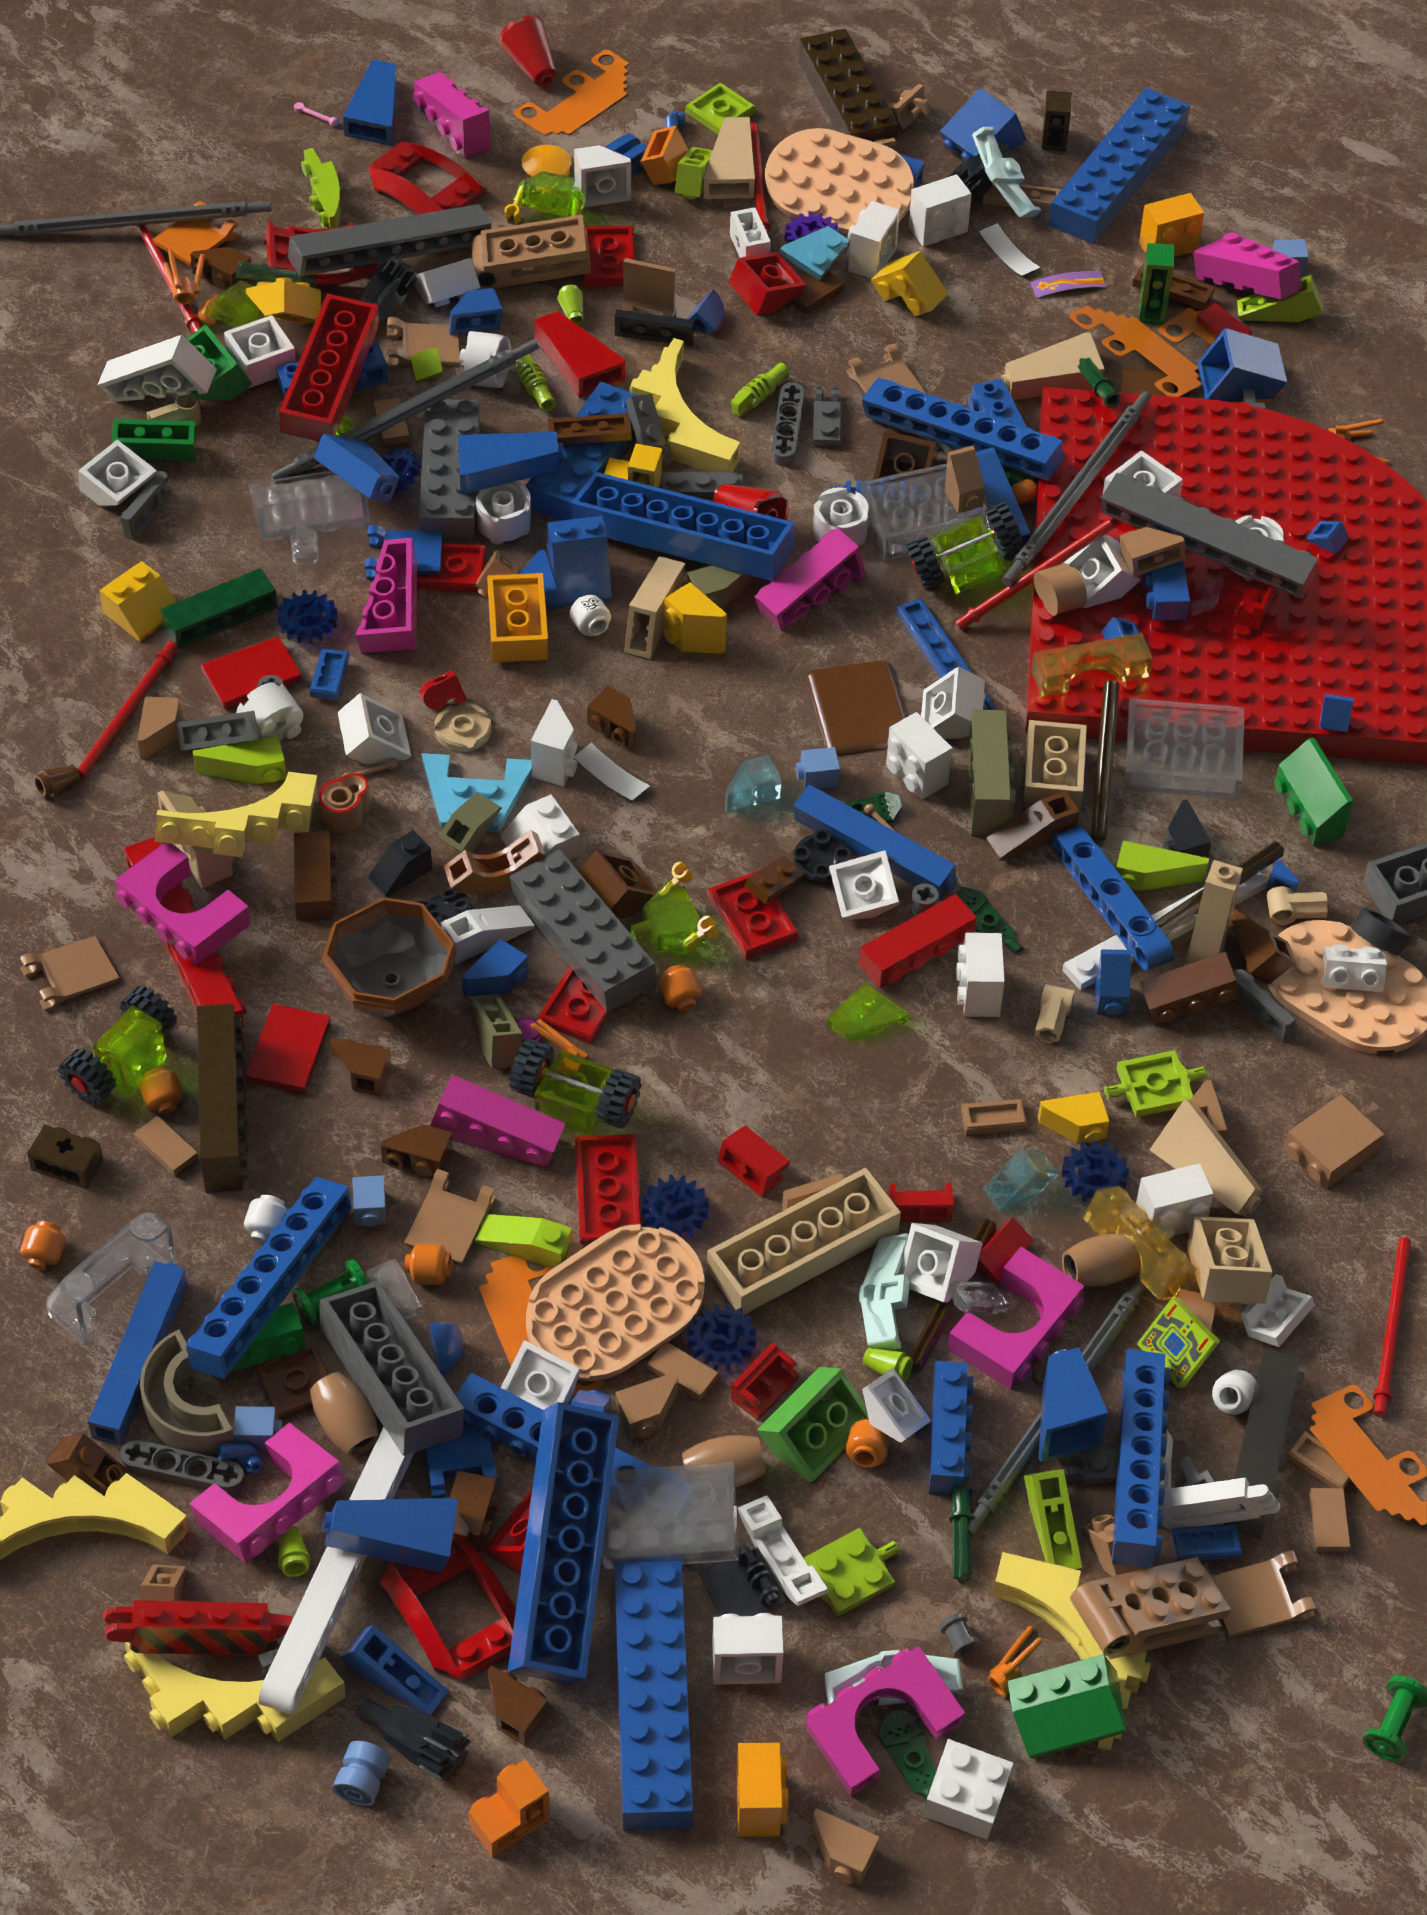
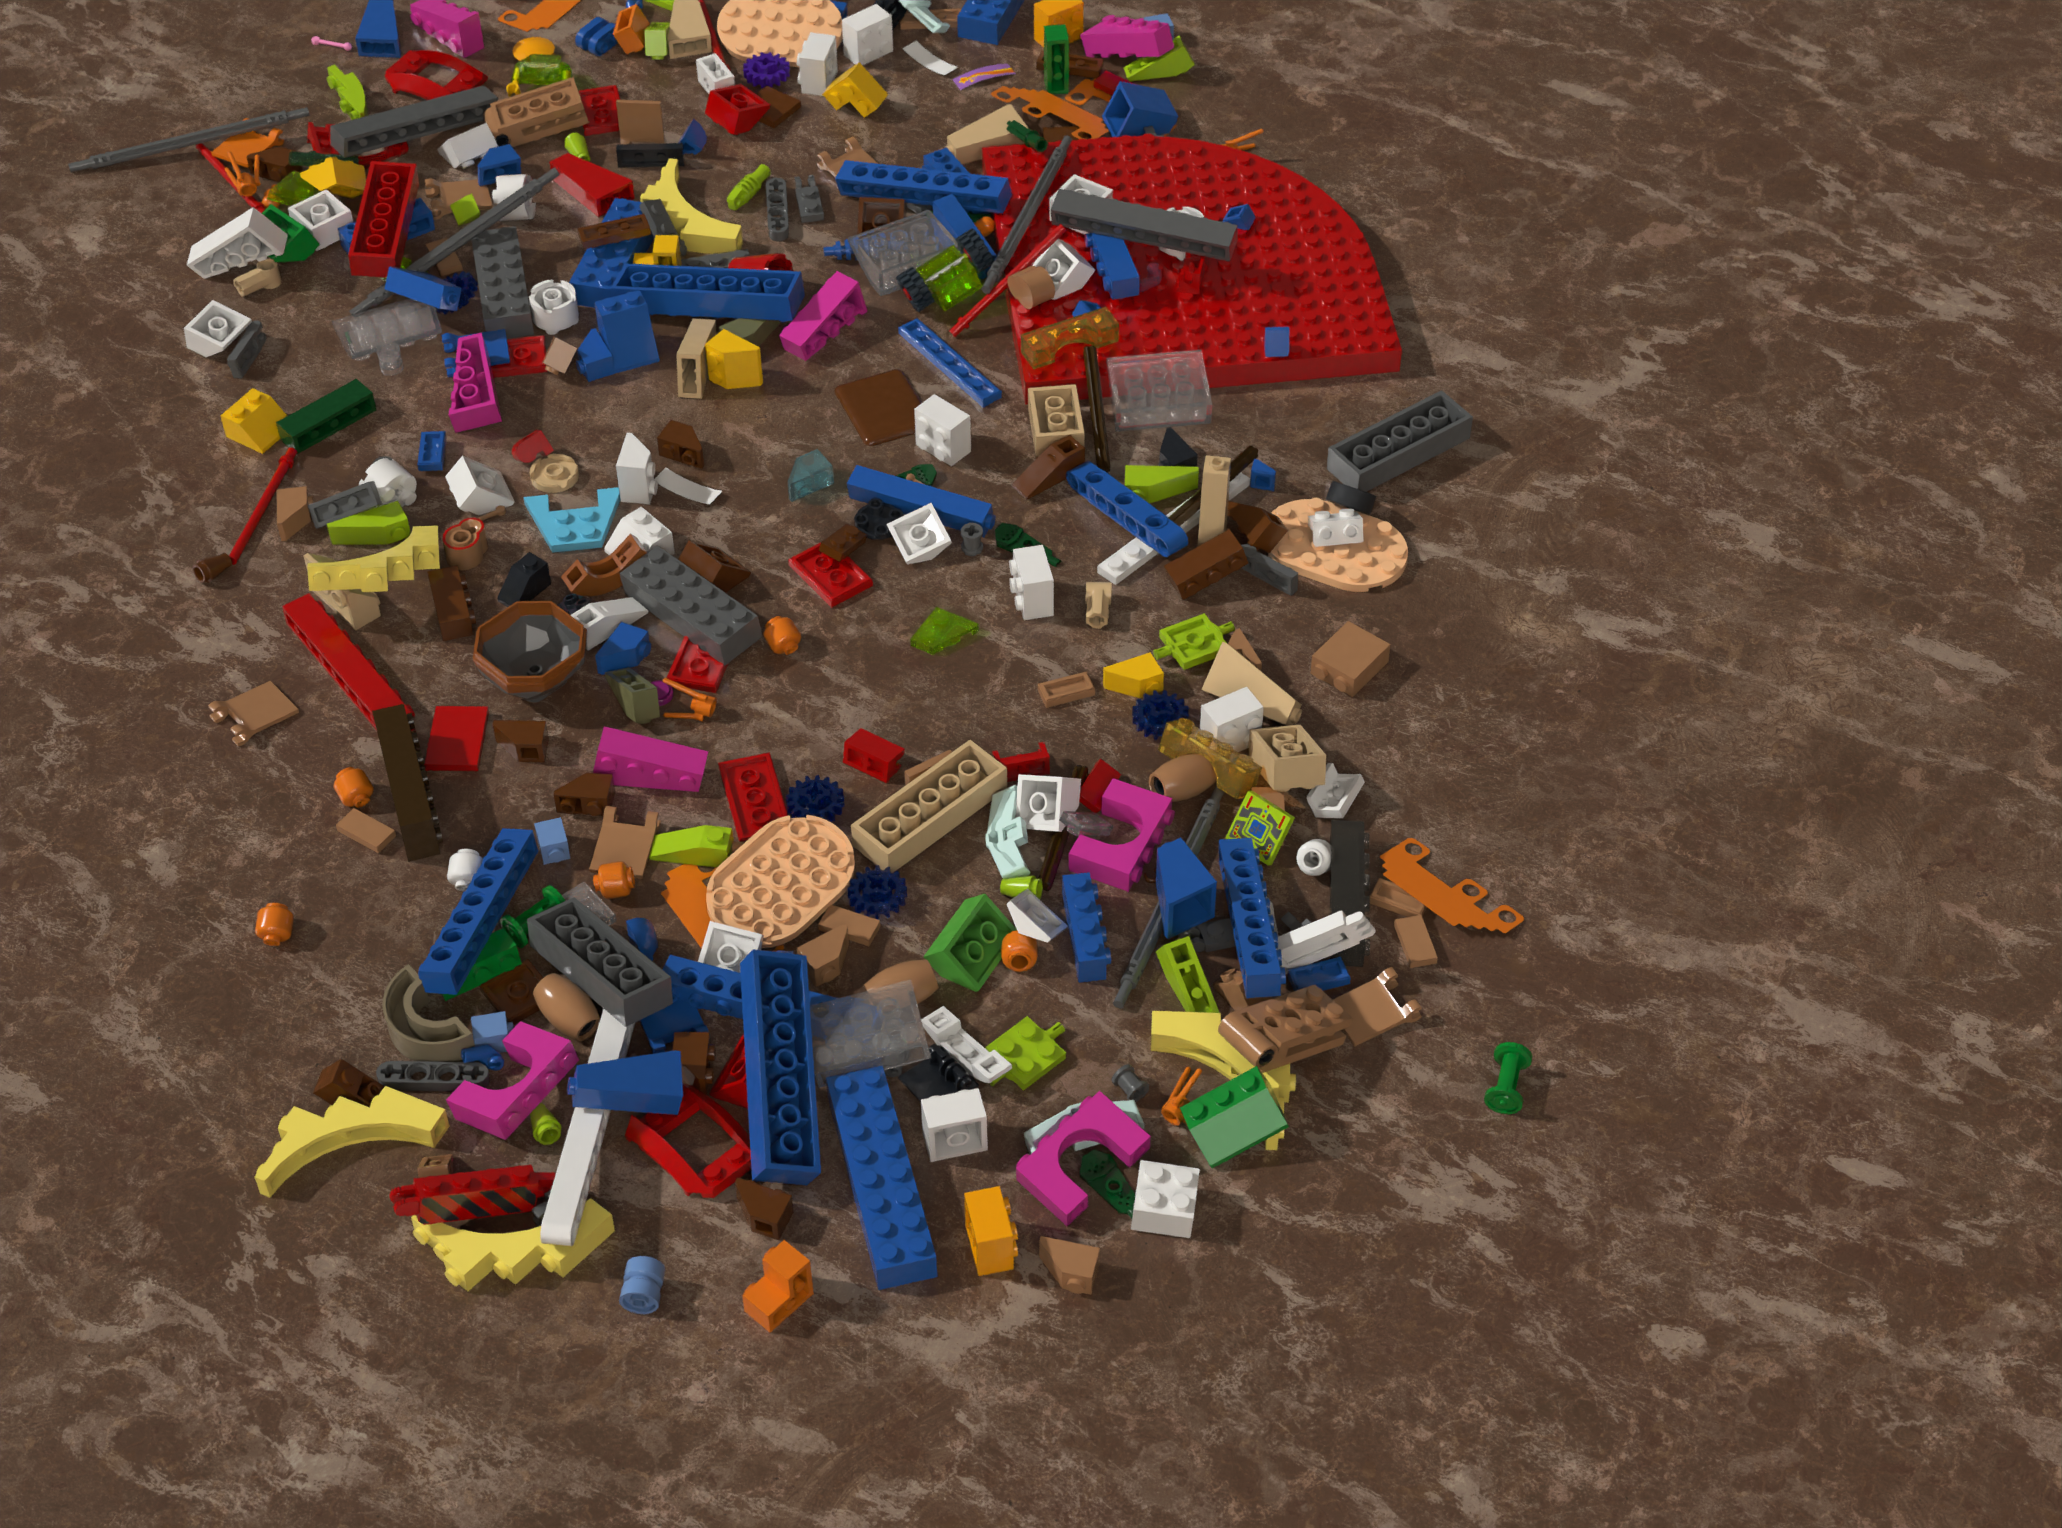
camera: 10 degrees left, 5 degrees down
(65, 1156) = (279, 852): dark brown brick -> none
(124, 1051) = (313, 760): brick -> none
(135, 1245) = (359, 908): clear windscreen -> none
(146, 1328) = (380, 966): blue brick -> none
(157, 438) = (248, 296): green brick -> none
(192, 934) = (356, 659): dark pink arch -> none
(239, 672) = (350, 464): red tile -> none
(307, 616) = (403, 410): clear blue gear -> none
(389, 286) = (423, 152): black piece -> none
(393, 1670) = (651, 1199): blue slope -> none
(419, 1737) = (686, 1247): black piece -> none
(470, 823) = (576, 539): olive slope -> none
(506, 458) = (548, 262): blue slope -> none
(517, 617) = (583, 382): light orange slope -> none
(535, 382) = (558, 209): lime hinge -> none
(574, 1088) = (710, 722): brick -> none
(590, 615) = (644, 372): white head -> none
(602, 175) = (583, 49): white slope -> none
(672, 918) = (764, 585): clear neon green torso -> none
(764, 1381) = (920, 920): red hinge -> none
(815, 251) = (772, 79): medium azure wing -> none
(819, 768) = (861, 452): medium blue brick -> none
(842, 511) = (836, 258): white brick -> none
(917, 941) = (972, 568): red brick -> none
(950, 701) = (964, 386): white slope -> none
(960, 1536) = (1114, 1010): dark green axle -> none
(964, 480) = (934, 219): medium nougat slope -> none
(990, 771) = (1003, 432): olive brick -> none
(1020, 1179) = (1099, 730): clear light blue slope -> none
(1113, 982) = (1142, 569): blue slope -> none
(1150, 550) = (1099, 242): medium nougat slope -> none
(1287, 906) = (1270, 493): tan piece -> none
(1314, 793) = (1272, 406): slope -> none
(1383, 1394) = (1435, 839): red bar -> none

